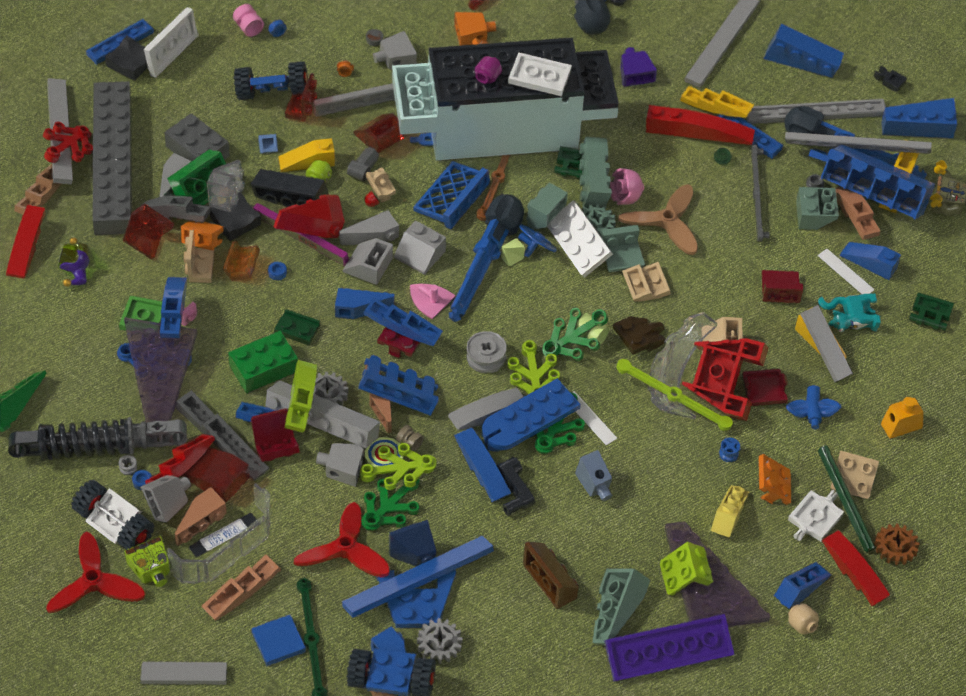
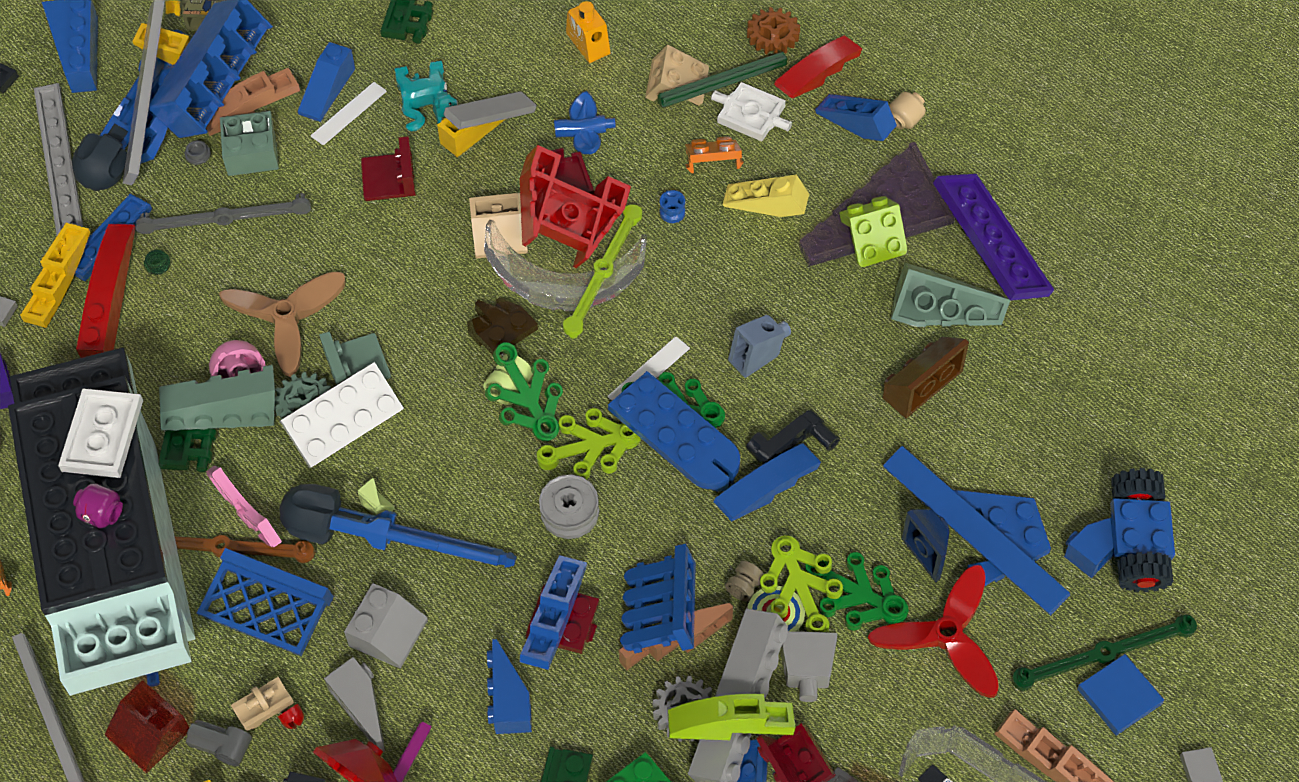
camera: 95 degrees left, 5 degrees up
(370, 260) = (423, 692): light grey slope -> none
(430, 298) = (474, 603): bright pink shield -> none
(449, 639) = (1063, 489): light grey gear -> none
(478, 411) = (672, 489): light grey slope -> none
(516, 188) = (244, 509): none -> bright pink tile
(533, 240) = (351, 468): blue shield -> none
(545, 206) = (296, 455): sand green slope -> none
(646, 282) = (403, 329): tan slope -> none

